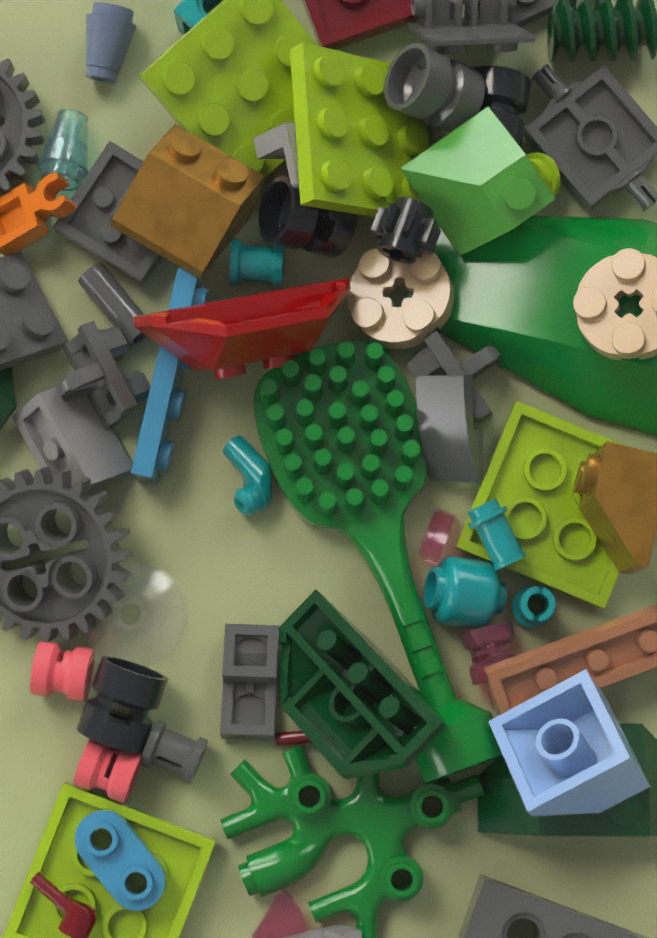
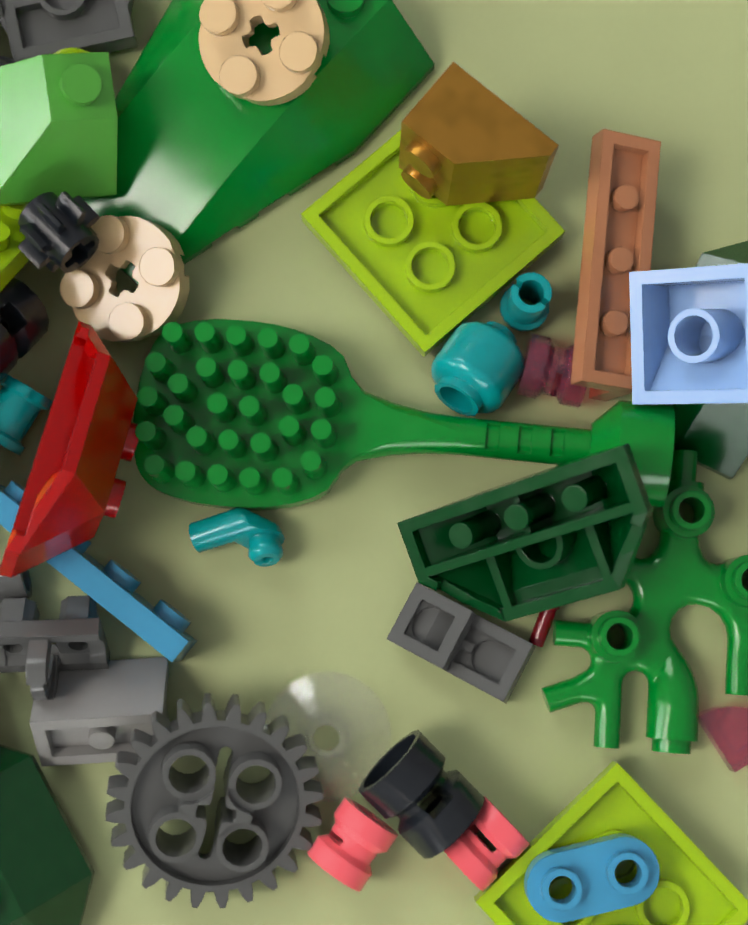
camera: 65 degrees left, 0 degrees up
(173, 752) = (499, 761): dark grey bush -> none
(436, 535) = (403, 368): clear pink tile -> none
(439, 360) = (217, 270): dark grey hips -> none
(447, 430) = (294, 296): dark grey slope -> none
(496, 534) = (434, 301): teal pin -> none

